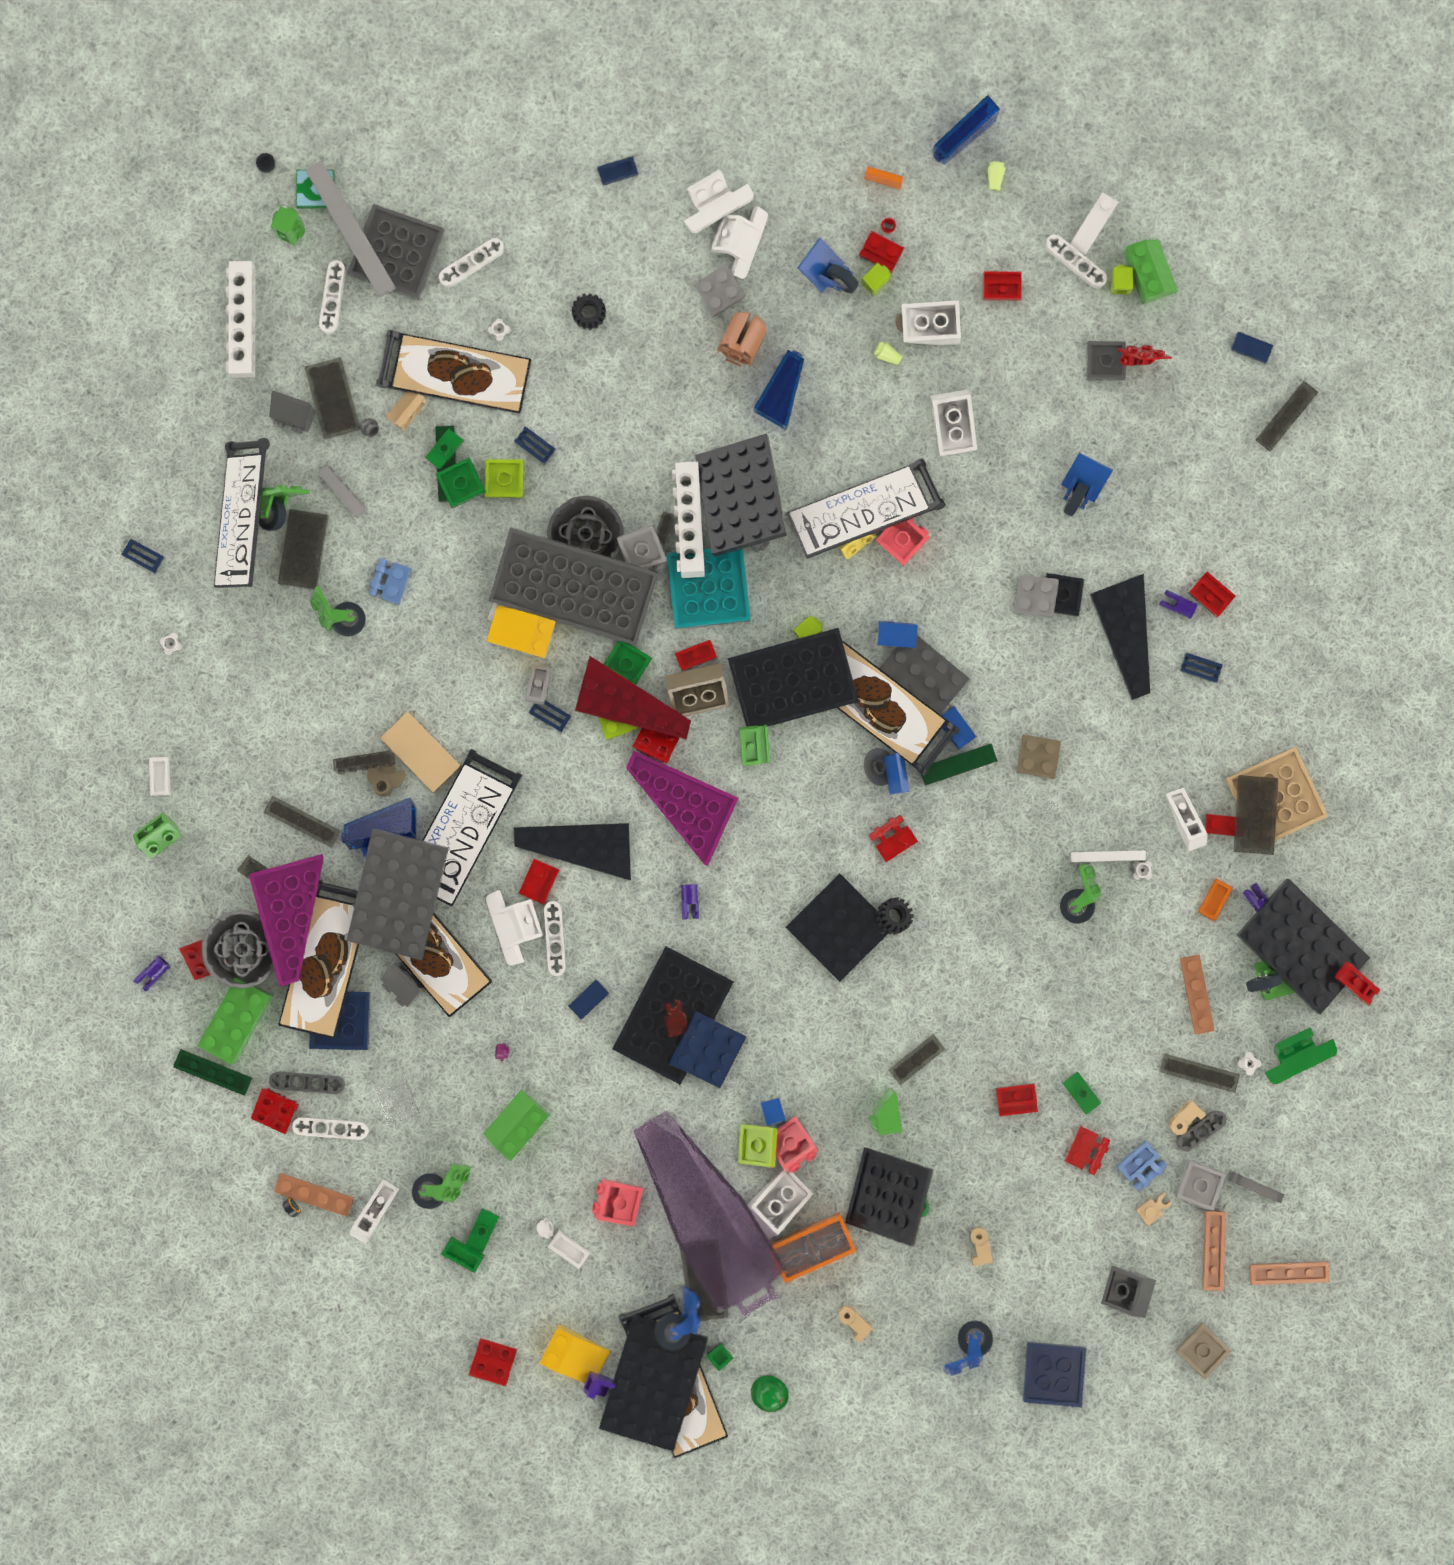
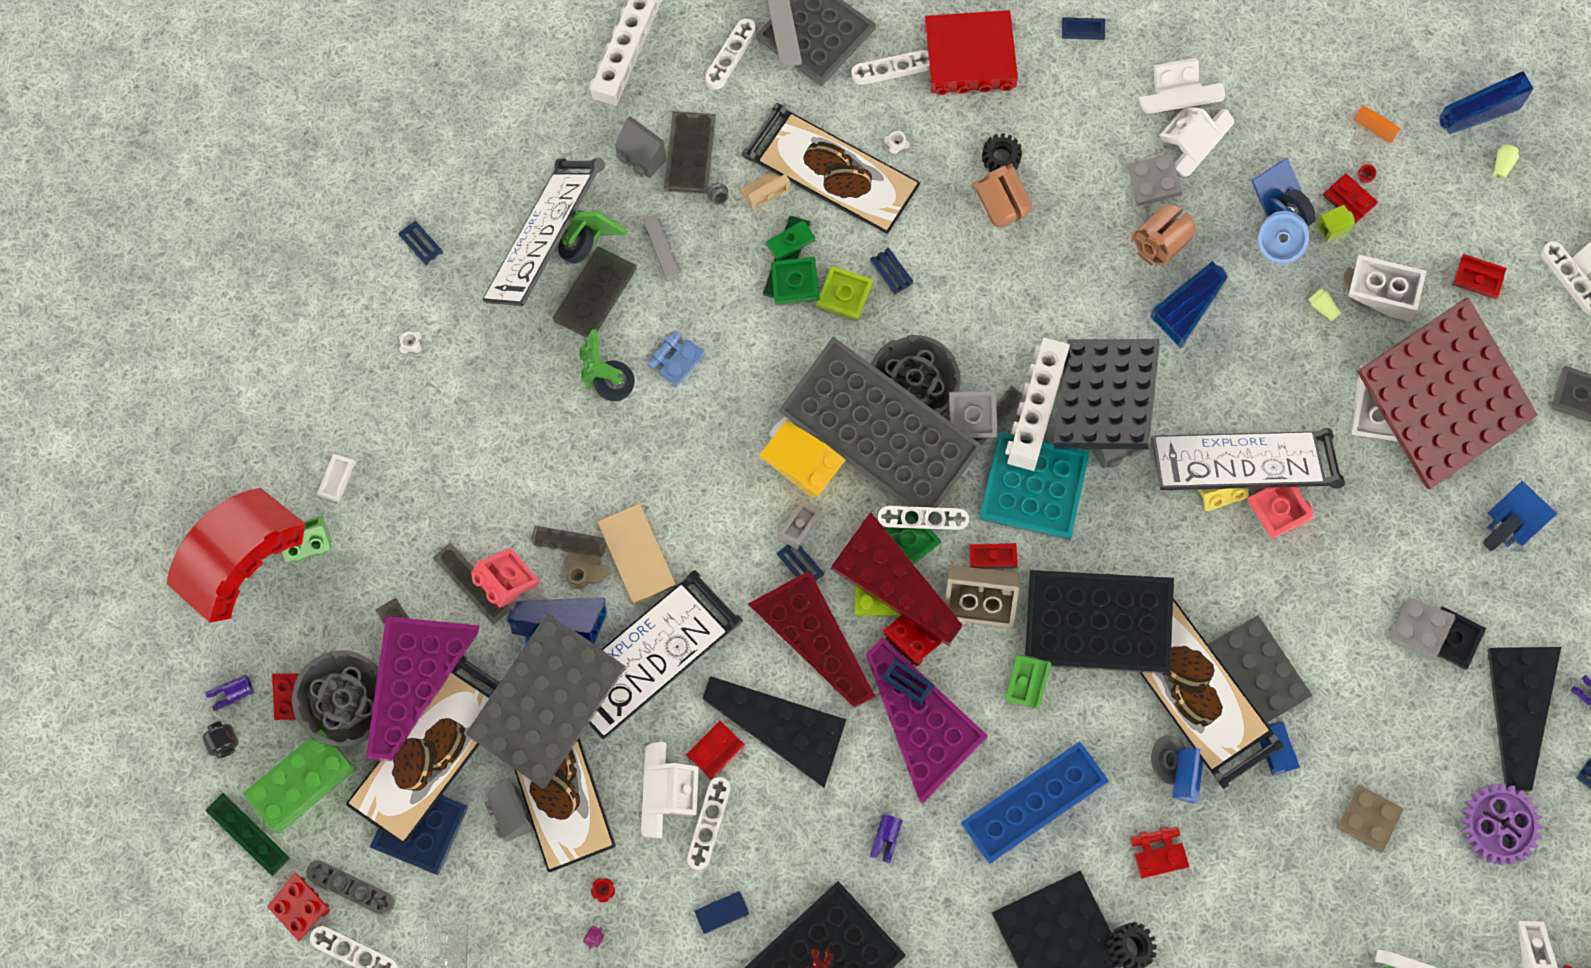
camera: 25 degrees right, 15 degrees down
(104, 865) = (229, 548): none -> panel
(161, 1011) = (220, 740): none -> black head
(325, 809) = (503, 577): none -> coral plate
(495, 1010) = (598, 885): none -> red plate
(532, 227) = (971, 52): none -> red panel
(576, 763) = (808, 625): none -> dark red wing
(603, 351) = (1003, 196): none -> nougat cylinder
(632, 648) = (923, 513): none -> white beam
(680, 783) = (925, 693): none -> dark blue tile
(790, 834) = (1034, 802): none -> blue plate
(808, 627) = (1137, 567): lime brick -> none
(848, 309) = (1283, 223): none -> light blue wheel
(897, 634) = (1240, 613): blue panel -> none
(960, 764) = (1269, 792): dark green tile -> none
(1003, 399) = (1447, 393): none -> plate
(1138, 710) = (1491, 842): none -> medium lavender gear

